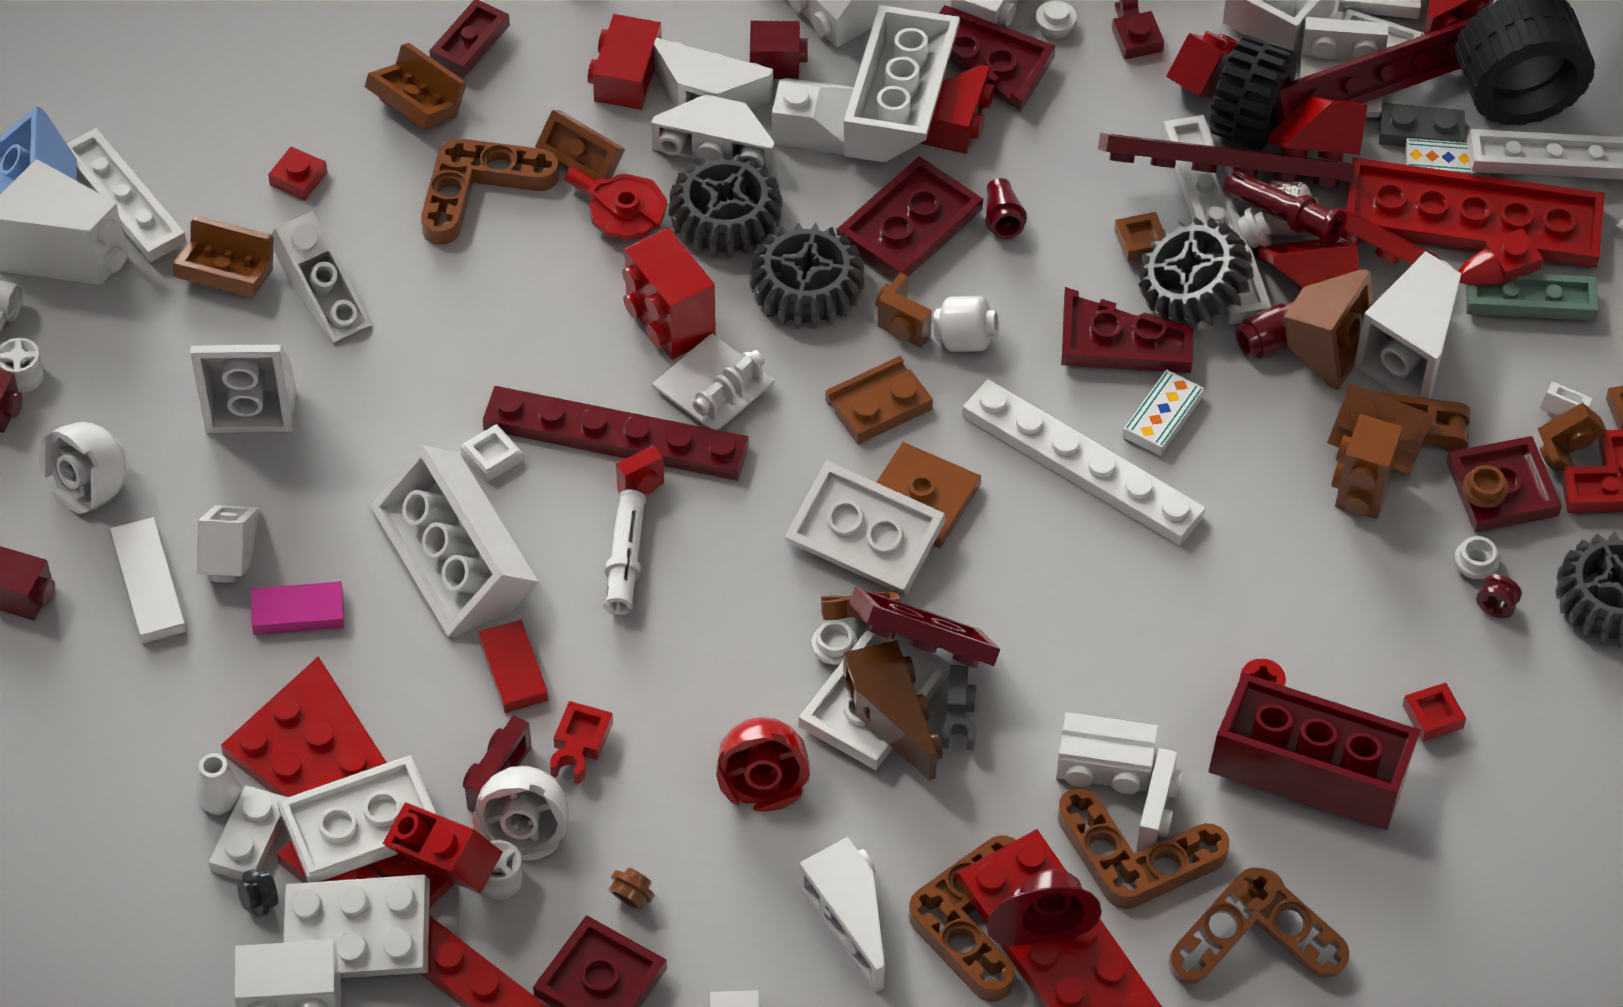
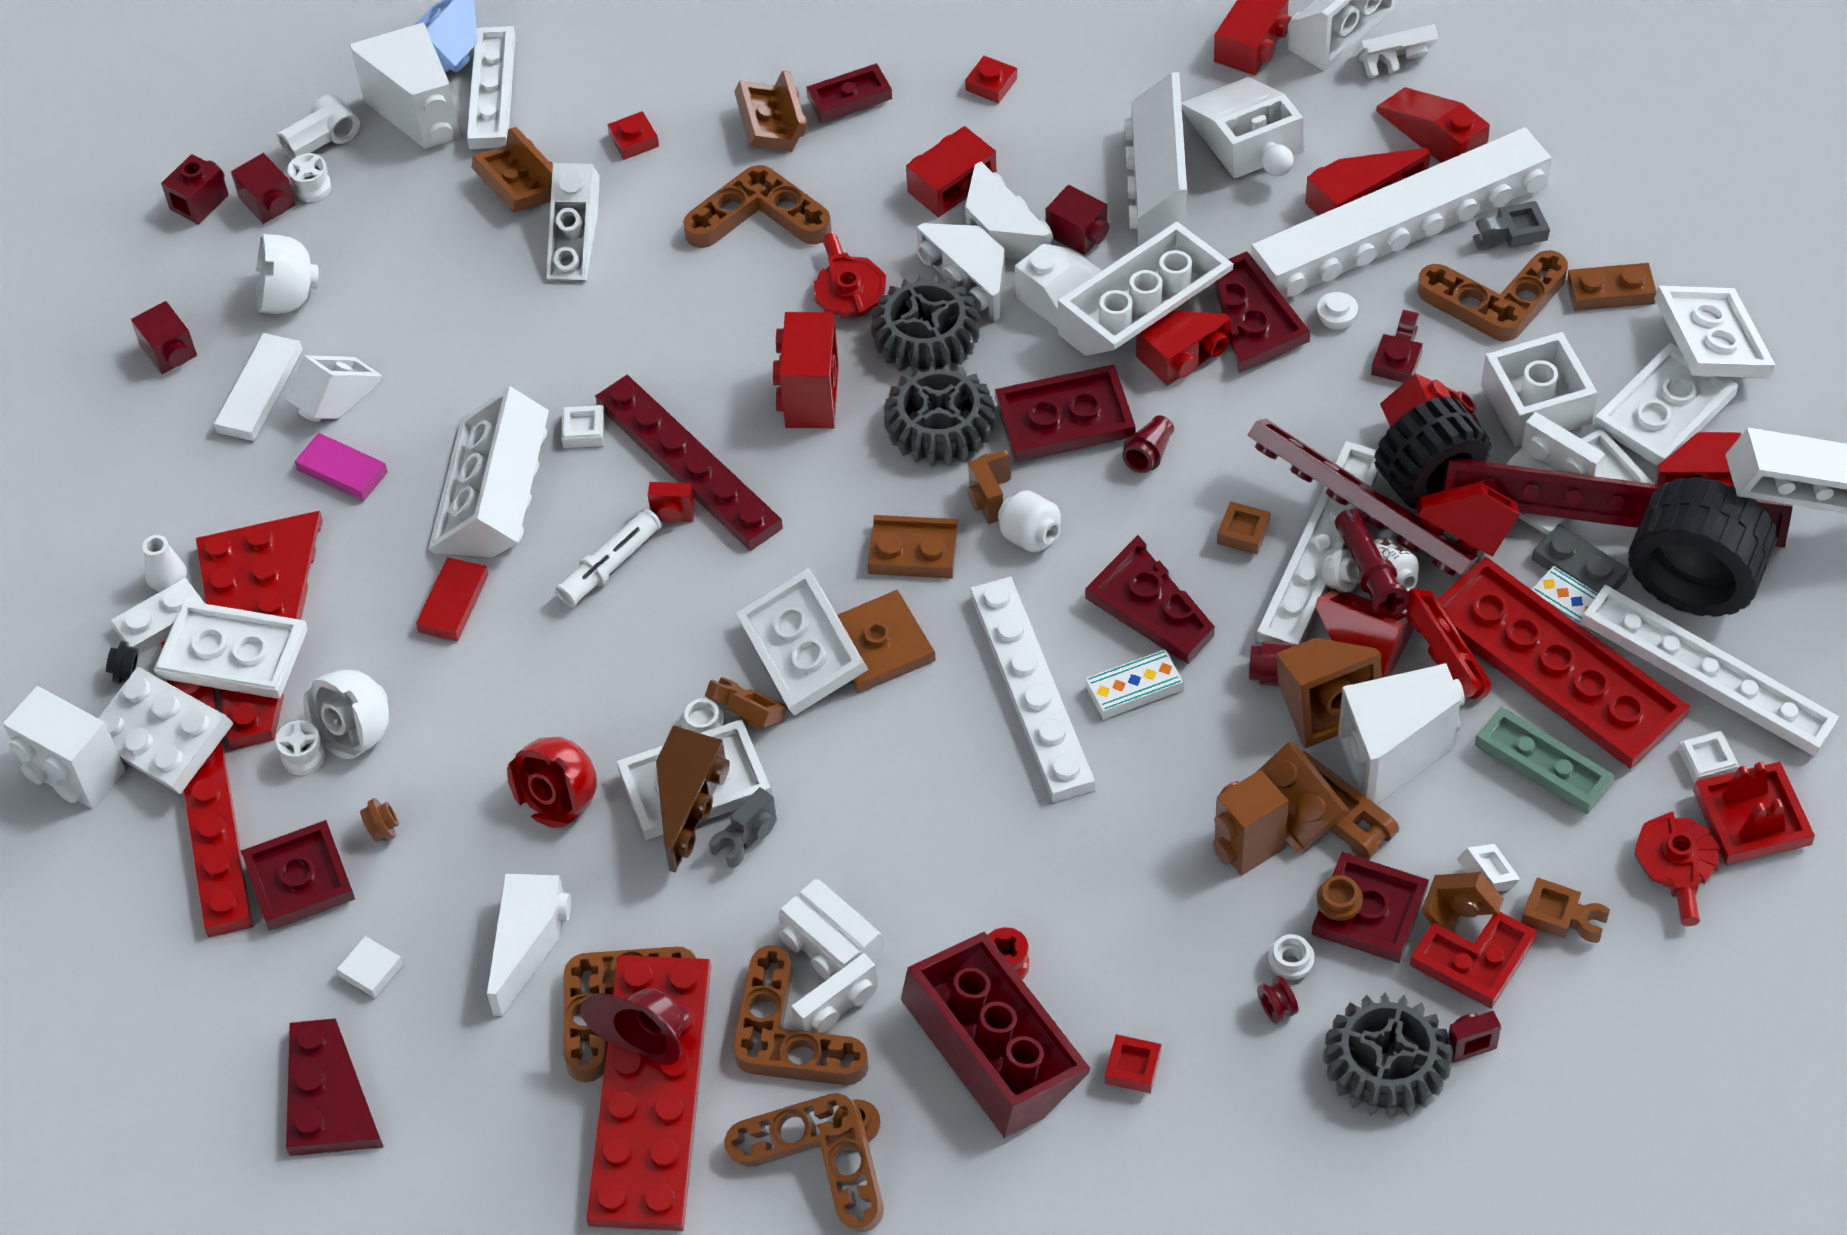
camera: 40 degrees right, 0 degrees up
(244, 388) = (433, 276): white slope -> none
(443, 847) = (258, 704): red slope -> none
(505, 750) = (380, 661): dark red plate -> none
(578, 736) = (447, 680): red plate -> none
(580, 146) = (854, 220): dark orange plate -> none
(715, 382) = (796, 462): white hinge -> none
(924, 628) = (758, 743): dark red plate -> none
(1207, 281) = (1251, 580): dark grey gear -> none
(1502, 260) = (1539, 714): red plate -> none

